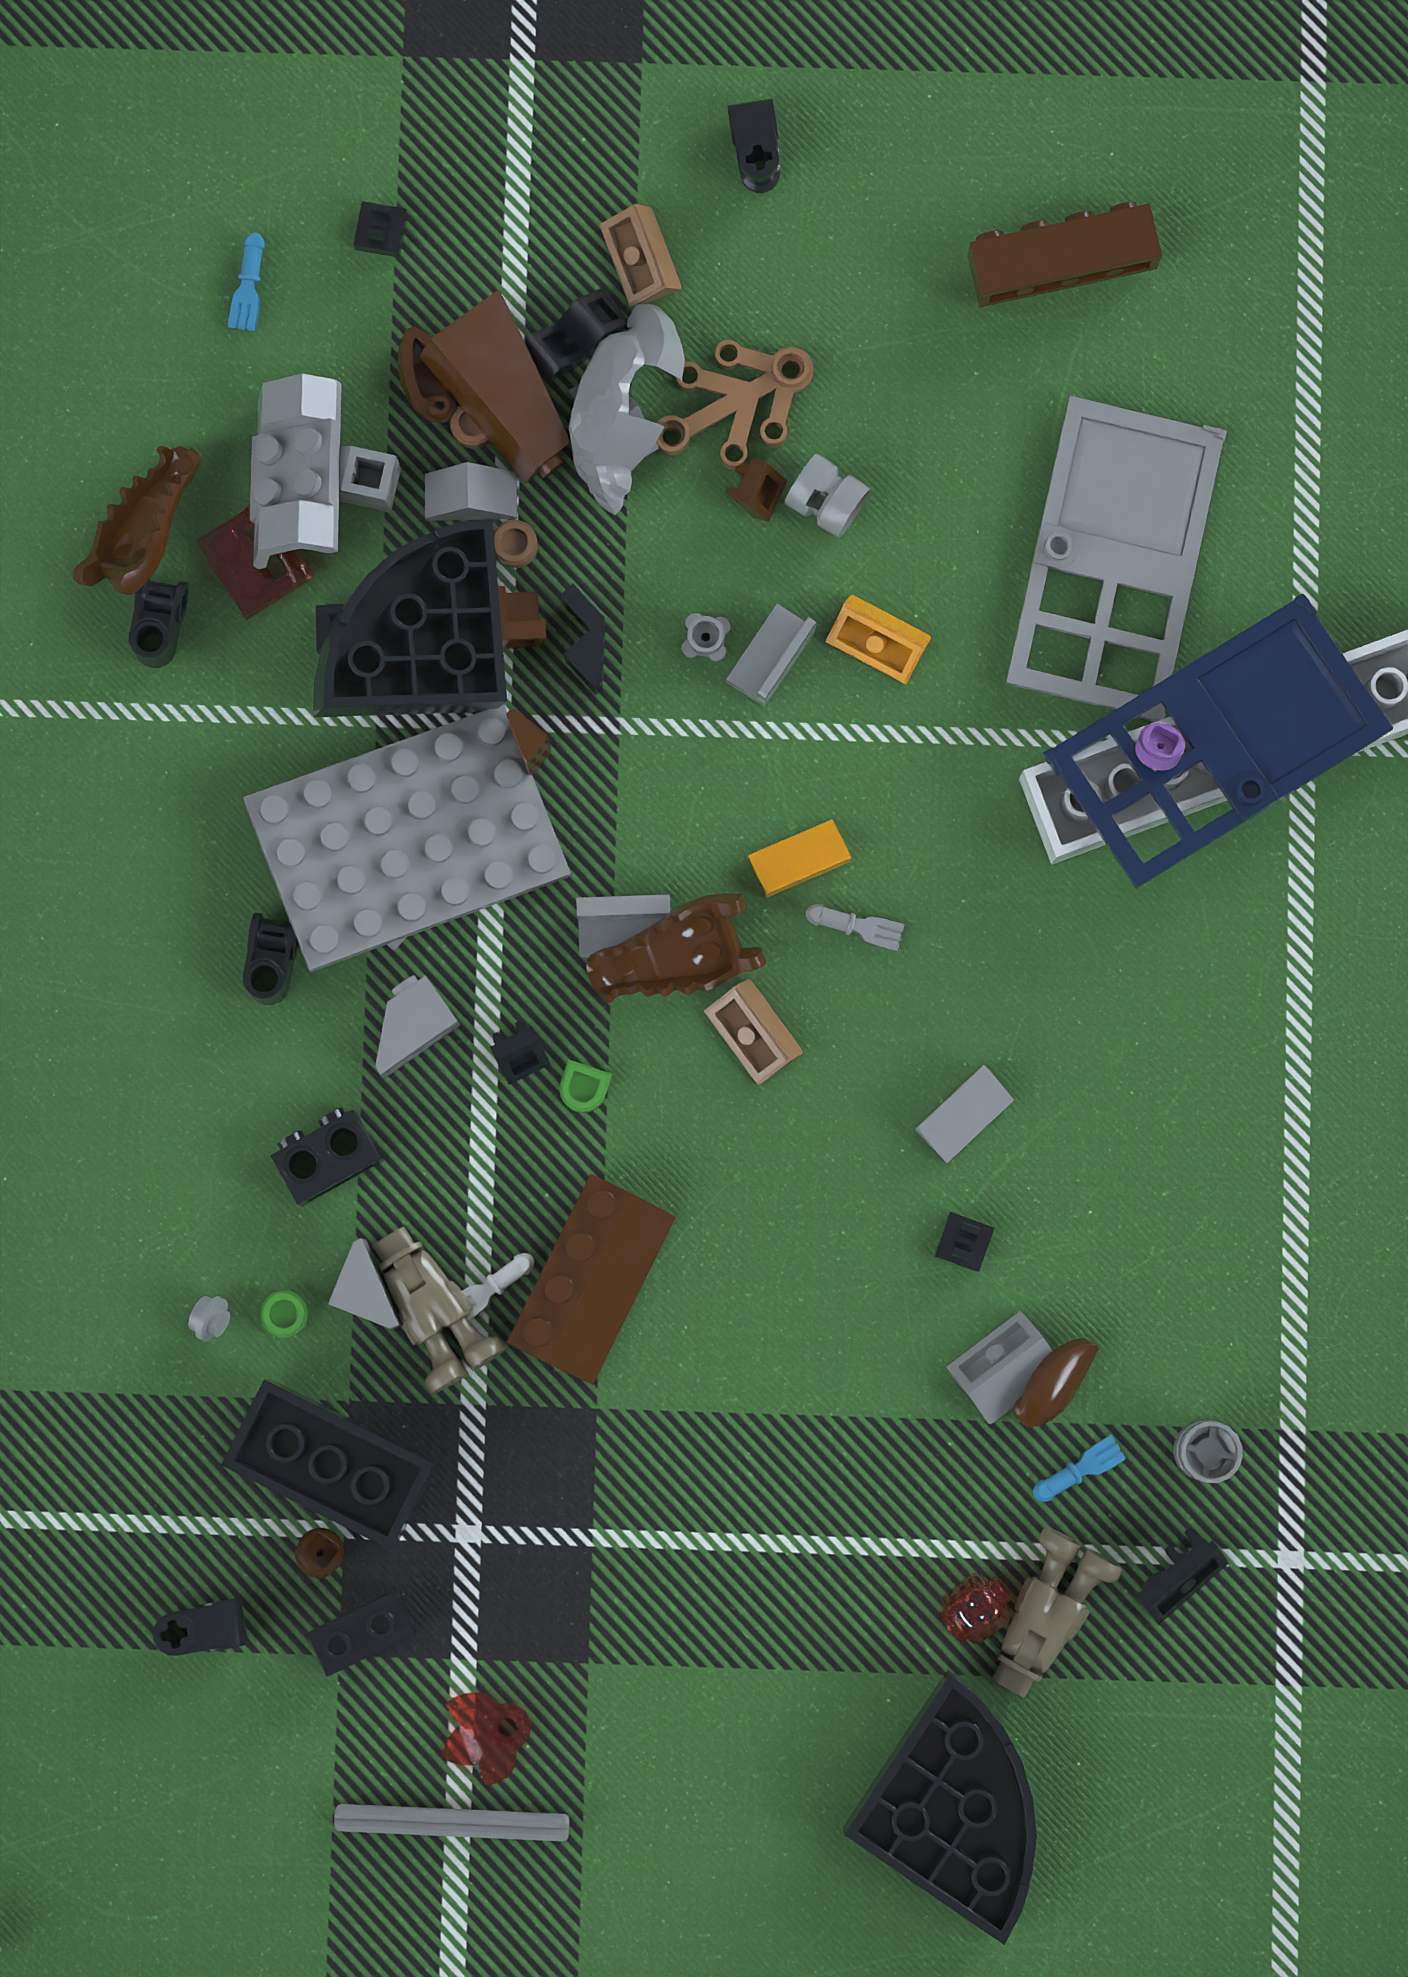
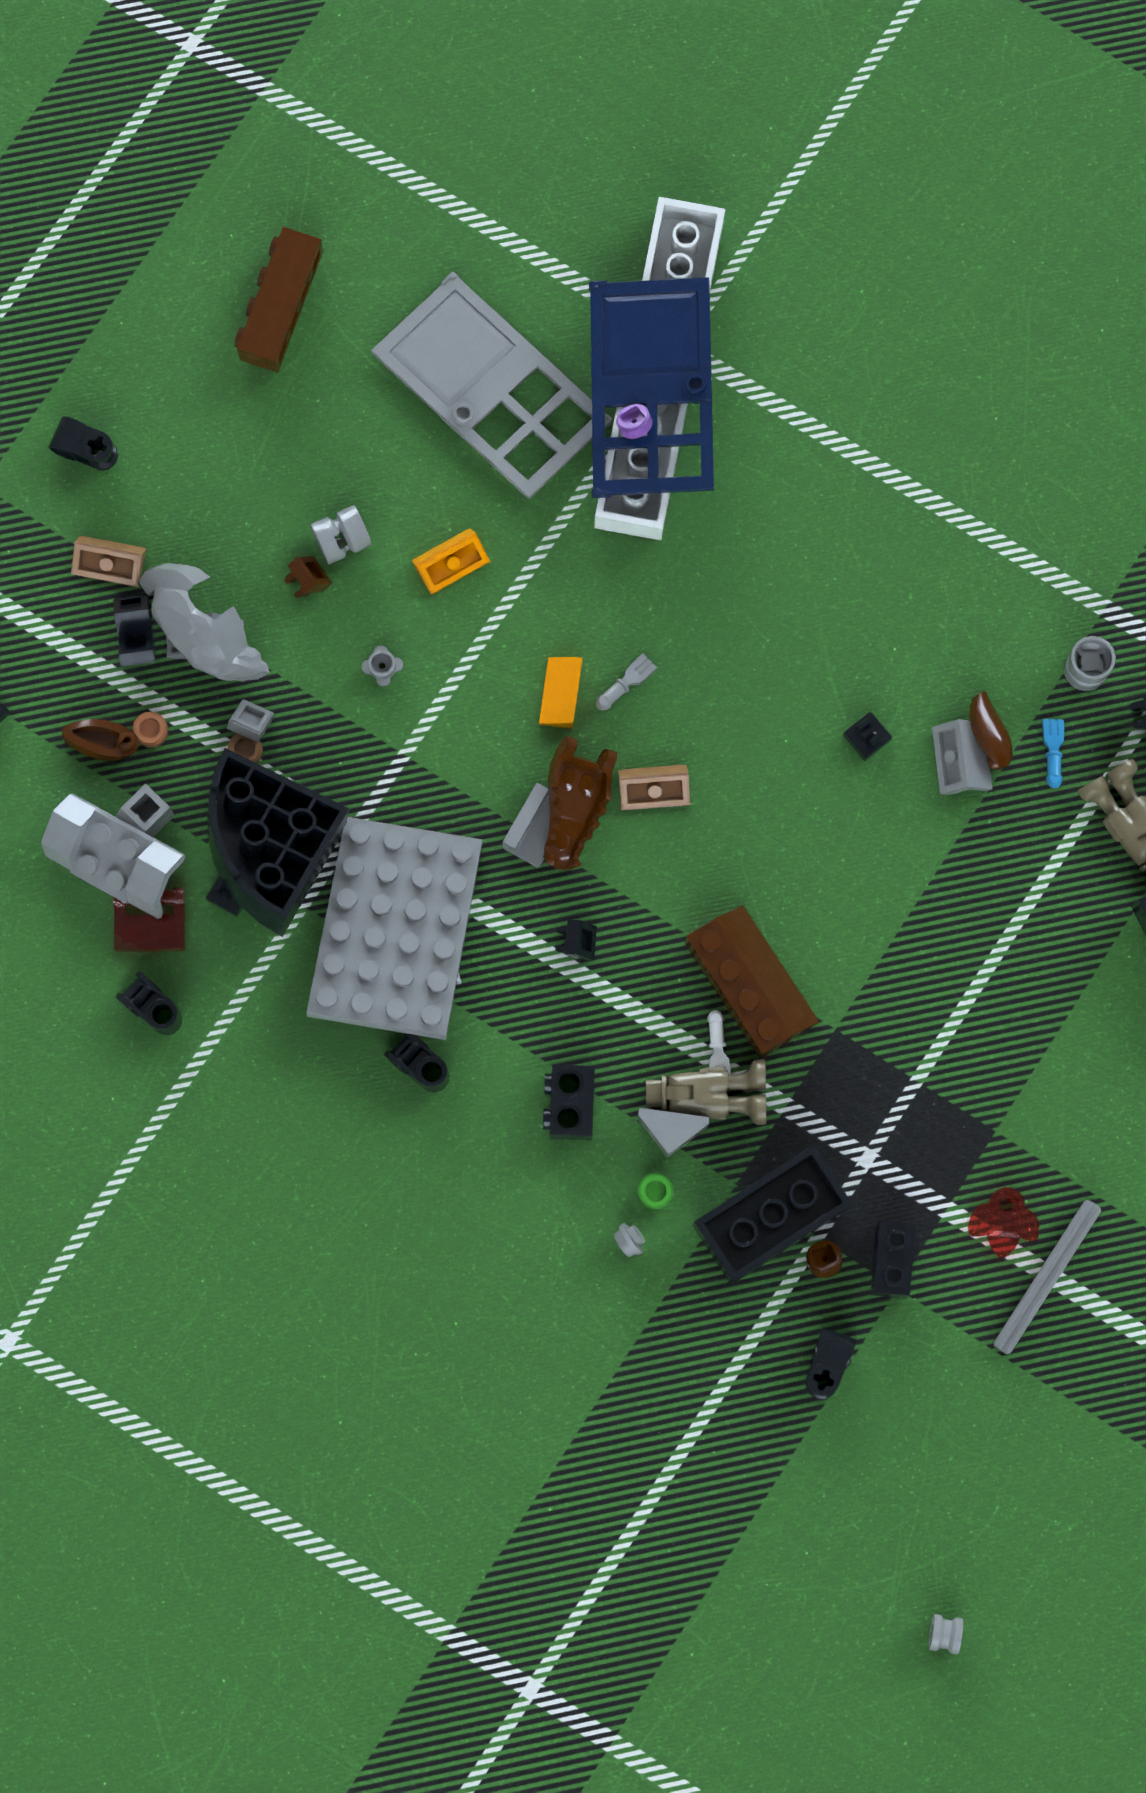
camera: 65 degrees left, 5 degrees down
(137, 530) = (84, 980): reddish brown animal -> none
(412, 1024) = (517, 995): light grey slope -> none
(470, 493) = (194, 758): light grey slope -> none
(499, 387) = (141, 695): reddish brown slope -> none
(520, 620) = (305, 774): reddish brown panel -> none
(531, 741) = (381, 811): reddish brown slope -> none
(549, 528) = (250, 720): none -> light grey tile
(583, 1087) = (624, 914): bright green tile -> none
(588, 653) = (350, 744): black slope -> none
(740, 398) = (242, 552): medium nougat plant -> none
(771, 654) = (420, 631): light grey panel -> none
(964, 1114) = (786, 687): light grey slope -> none
(976, 1608) = (1104, 864): clear red head -> none

